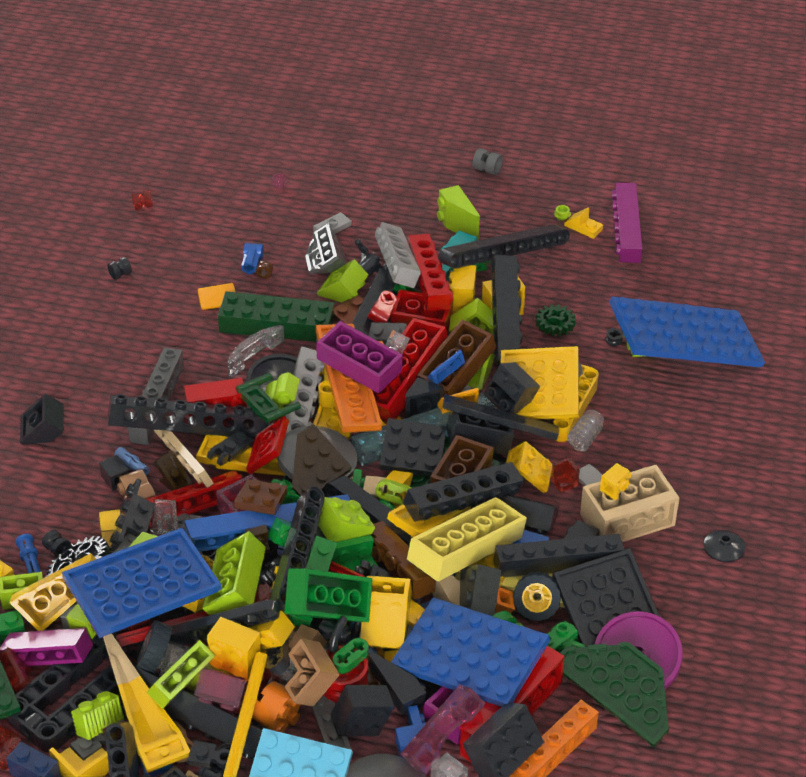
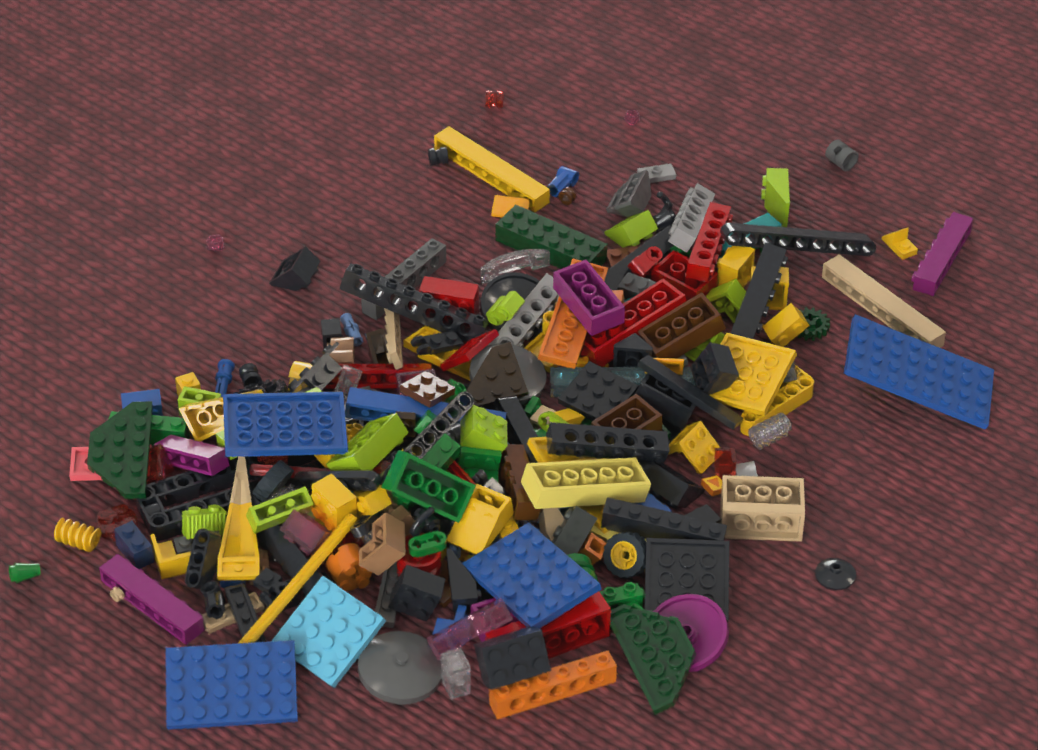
camera: 25 degrees right, 0 degrees up
(178, 264) = (492, 168): none -> yellow brick
(261, 402) = (481, 310): dark green plate -> none
(397, 341) = (628, 296): clear brick -> none
(447, 368) = (663, 331): blue slope -> none
(541, 327) = (785, 325): none -> yellow brick
(562, 212) = (885, 225): lime plate -> none
(567, 499) = (712, 485): none -> orange tile
(601, 279) = (881, 301): none -> tan brick
(615, 481) = (751, 478): yellow brick -> none

